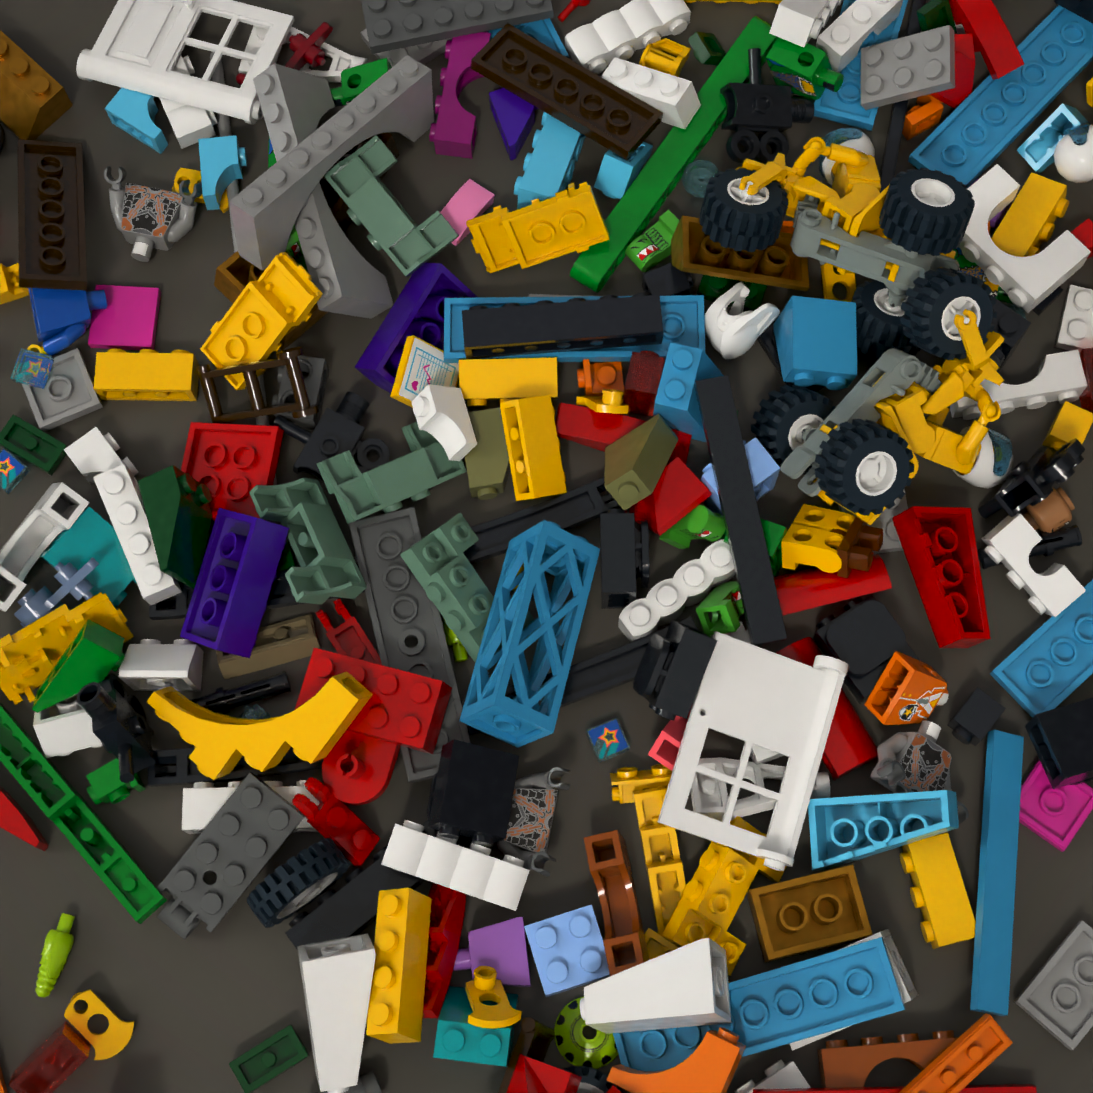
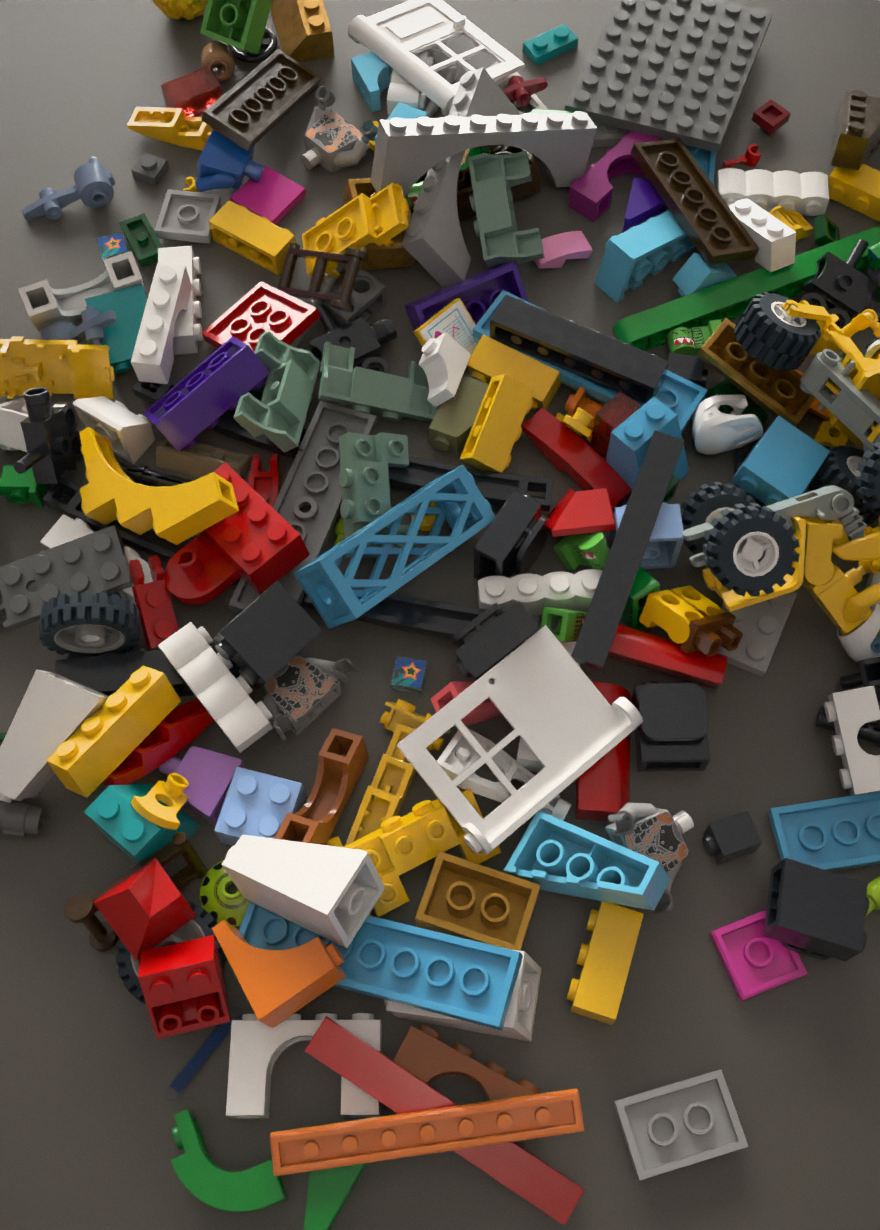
camera: 30 degrees right, 10 degrees down
(32, 368) = (178, 190): clear light blue tile -> none
(84, 661) = (66, 380): green slope -> none
(178, 521) = (194, 327): dark green slope -> none
(539, 230) = (608, 279): yellow piece -> none
(638, 461) = (572, 473): olive slope -> none
(906, 691) = (683, 777): orange torso -> none
(946, 572) = (778, 703): red wedge -> none
(997, 874) = (663, 979): dark azure tile -> none

